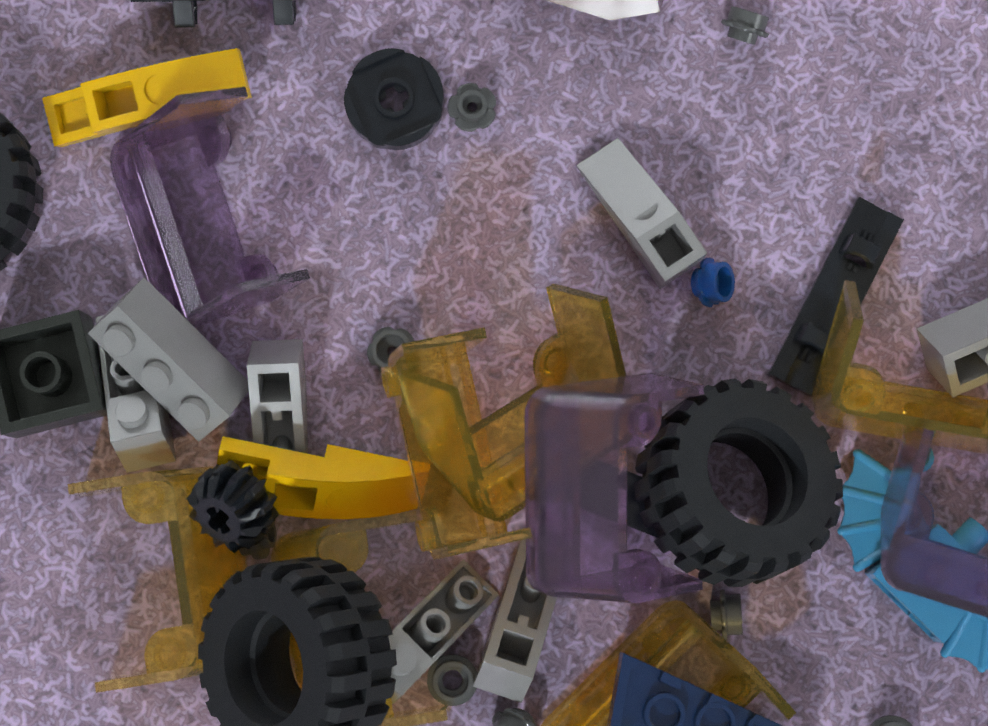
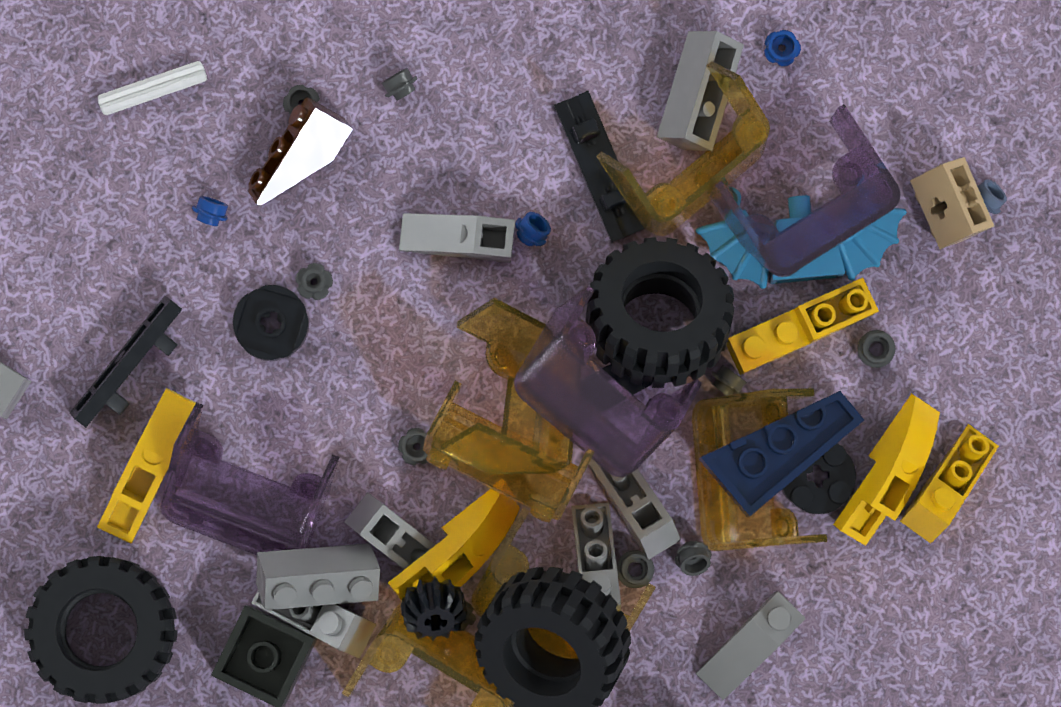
camera: 55 degrees left, 0 degrees up
(849, 643) = (801, 326): none -> yellow slope

